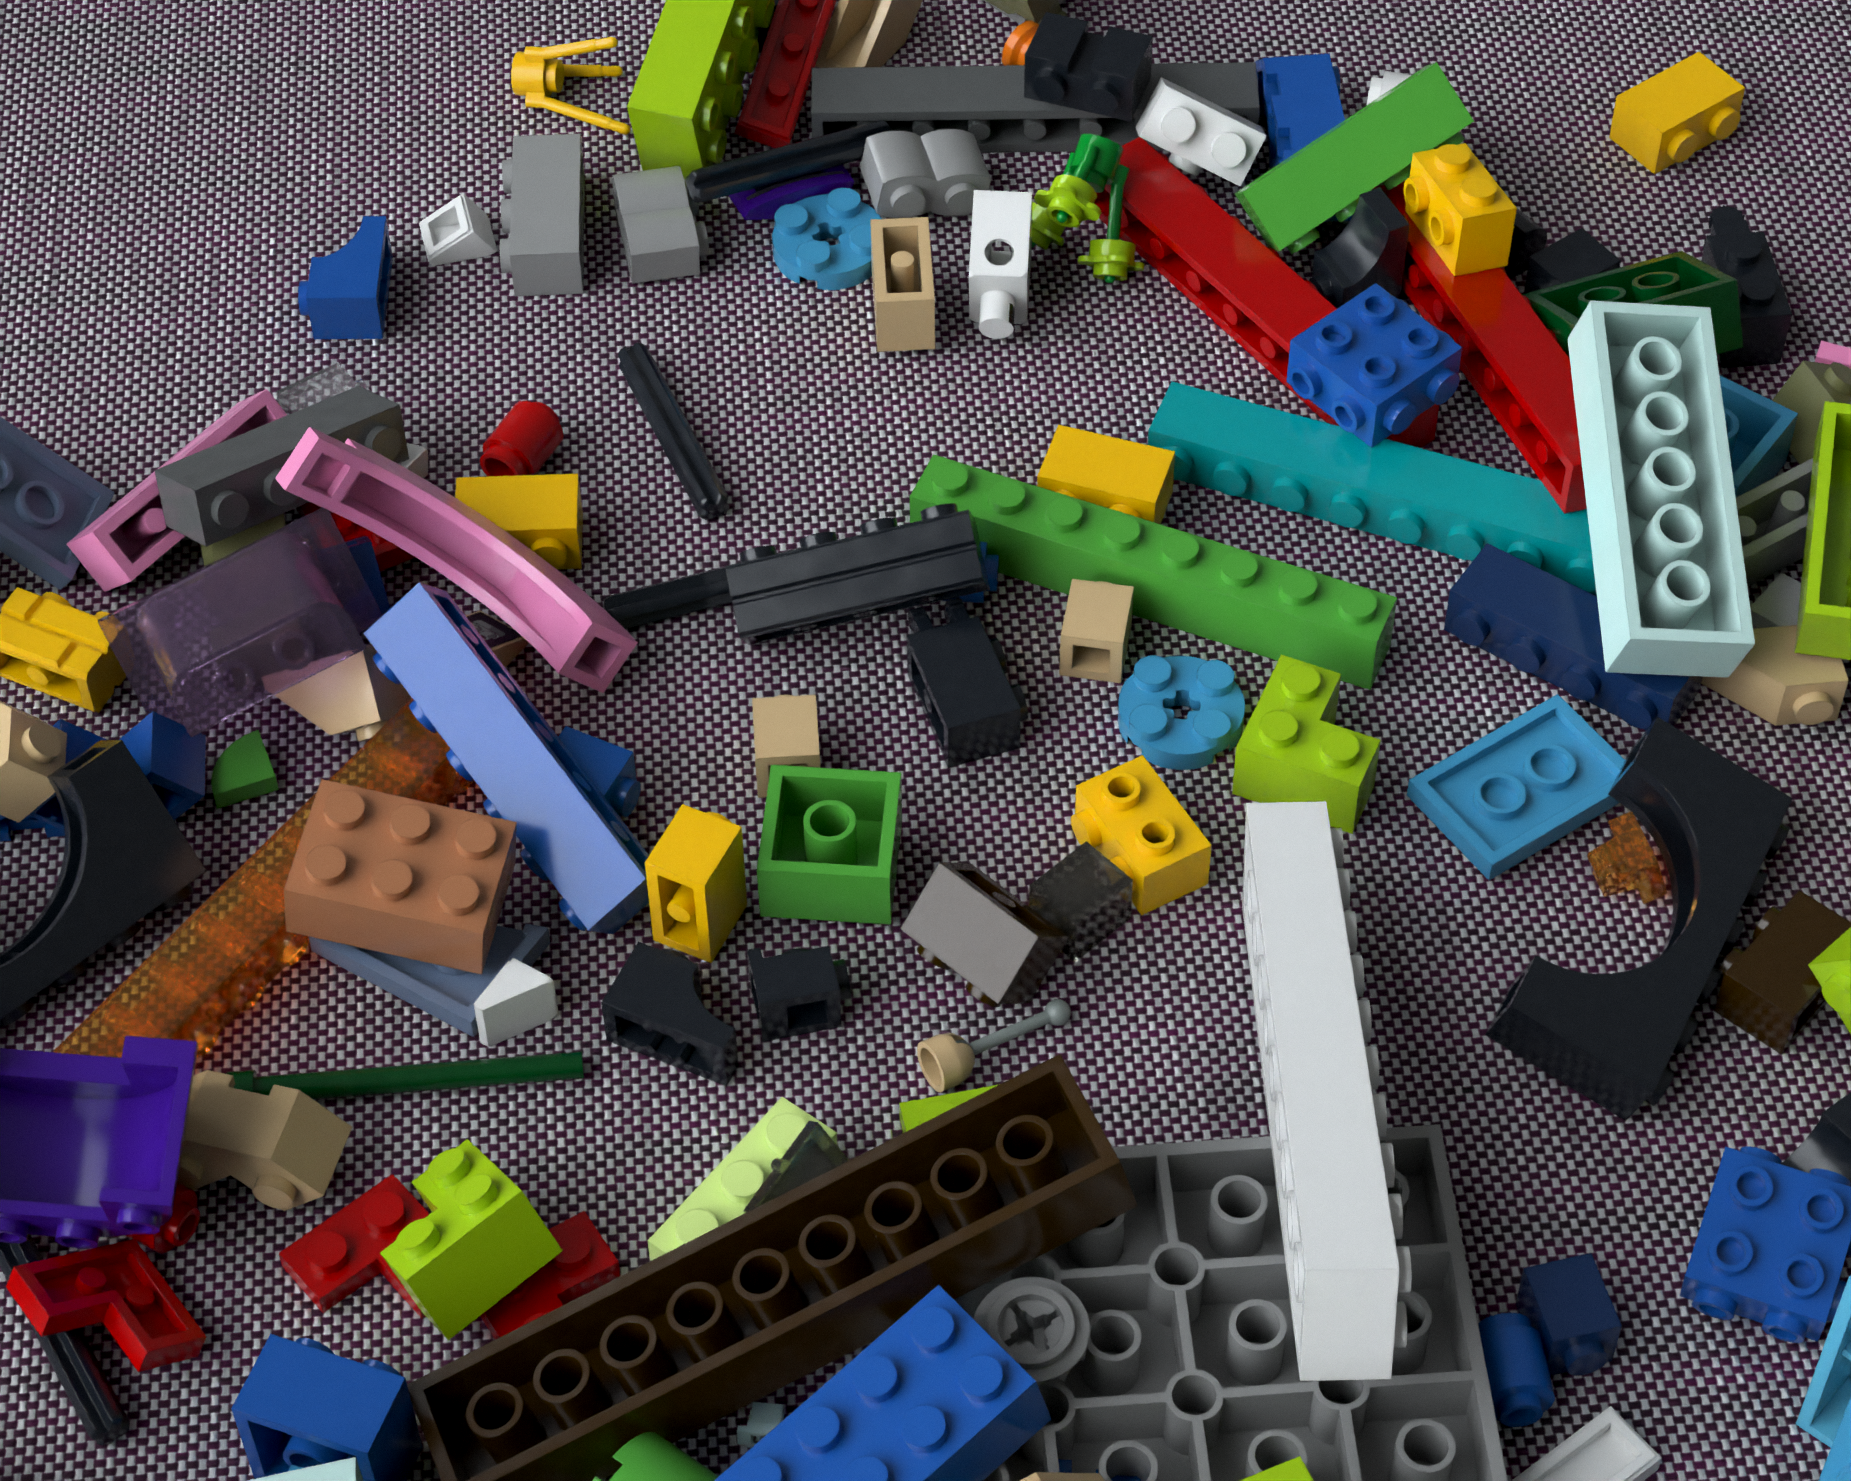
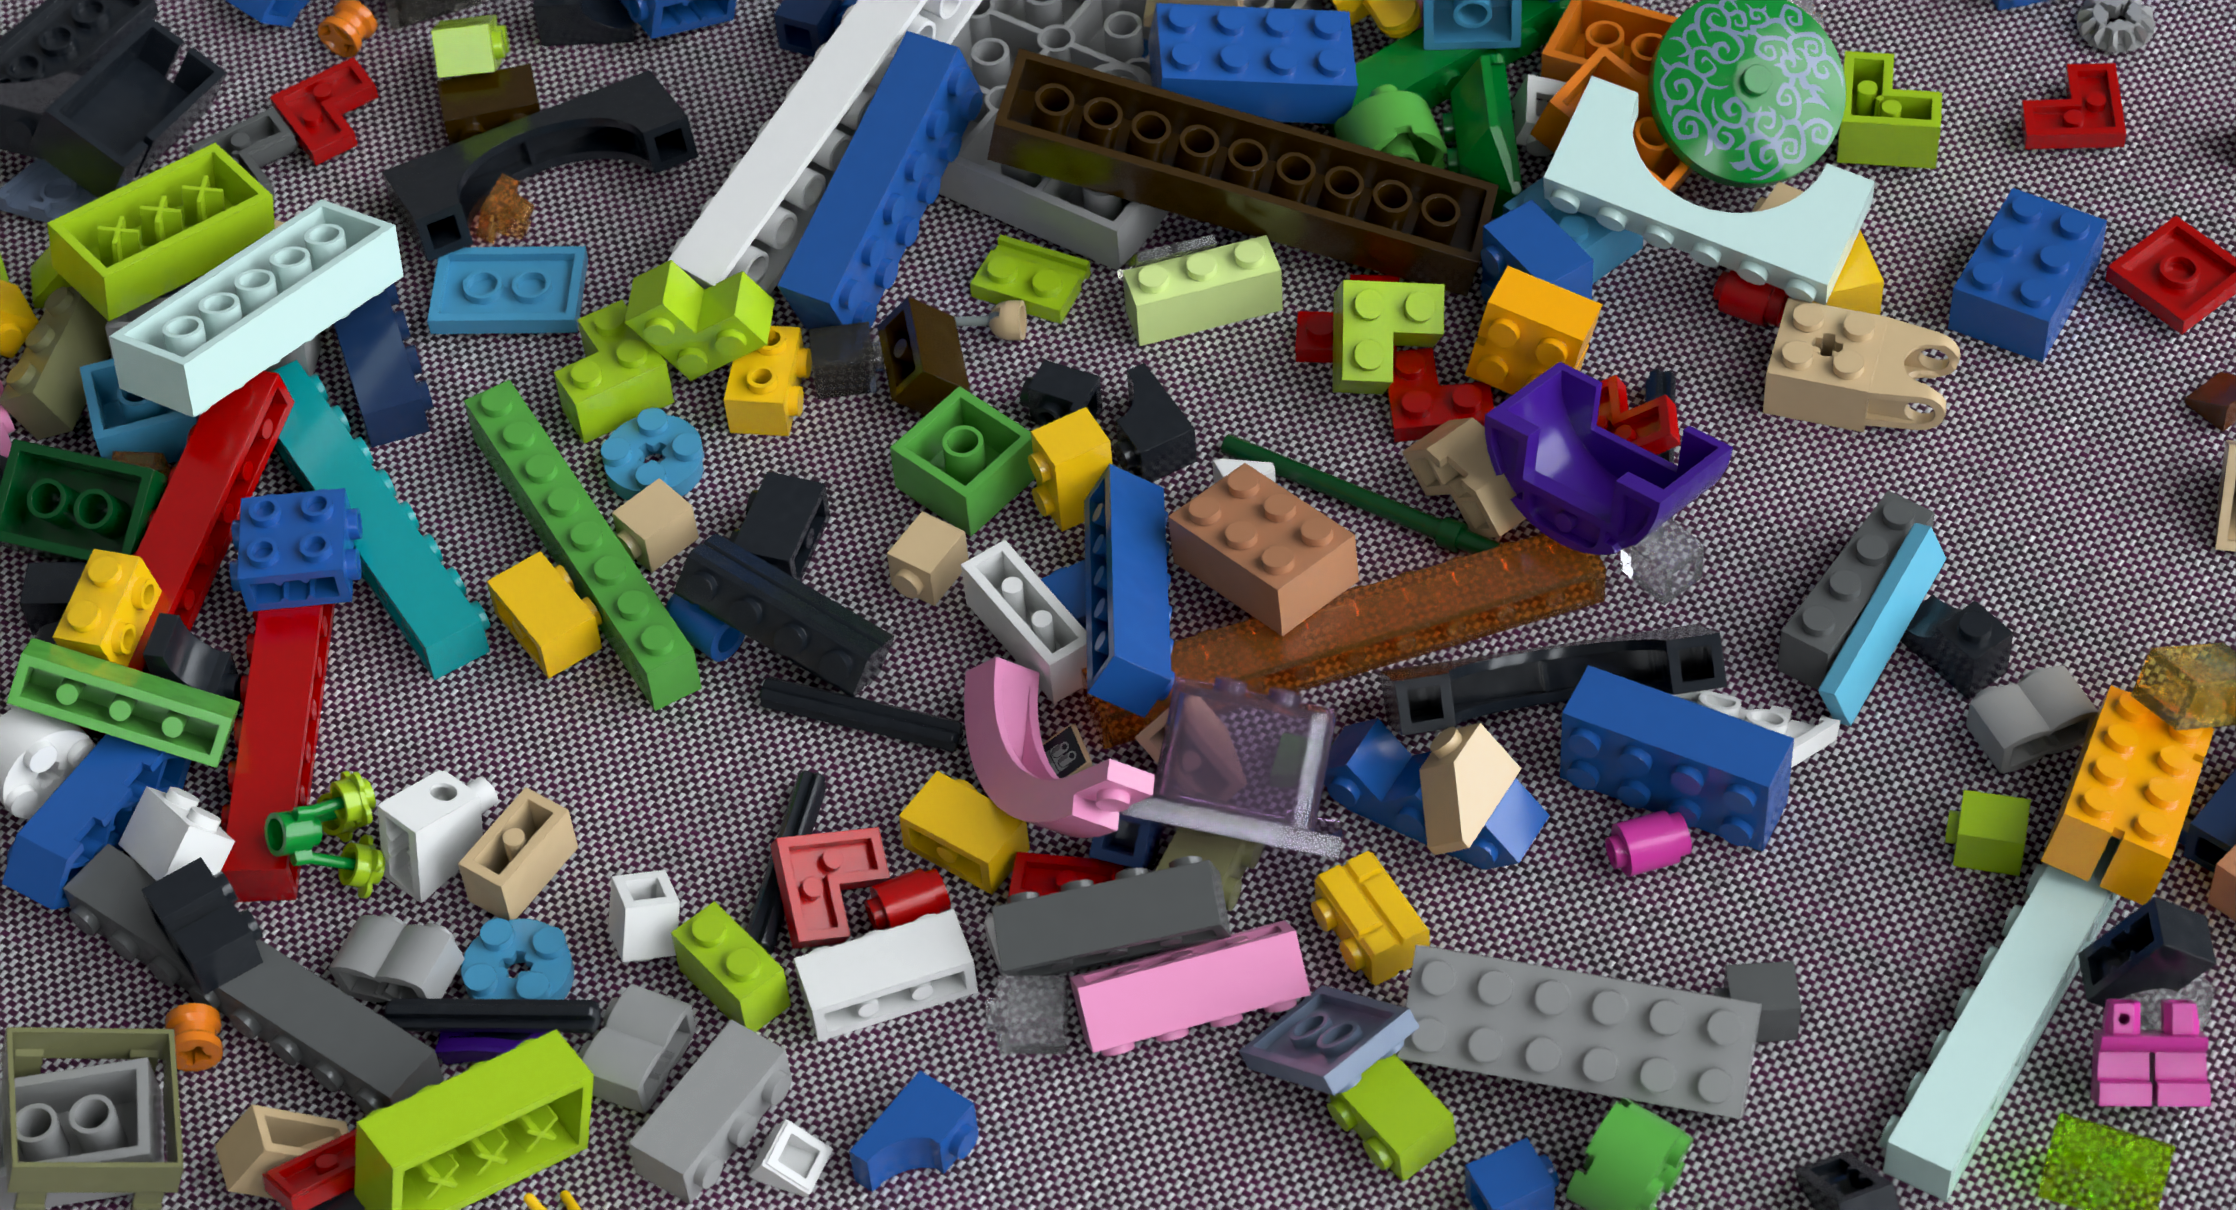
camera: 140 degrees left, 0 degrees up
(237, 1300) = (1530, 330): none -> light orange piece
(484, 376) = (886, 974): none -> white brick
(619, 414) = (814, 872): none -> plate
(627, 304) = (731, 968): none -> lime brick
(660, 723) = (1026, 618): none -> white brick
(740, 295) = (643, 915): none -> white brick
(1183, 1030) = (882, 185): none -> blue brick
(1262, 759) = (697, 325): none -> lime brick

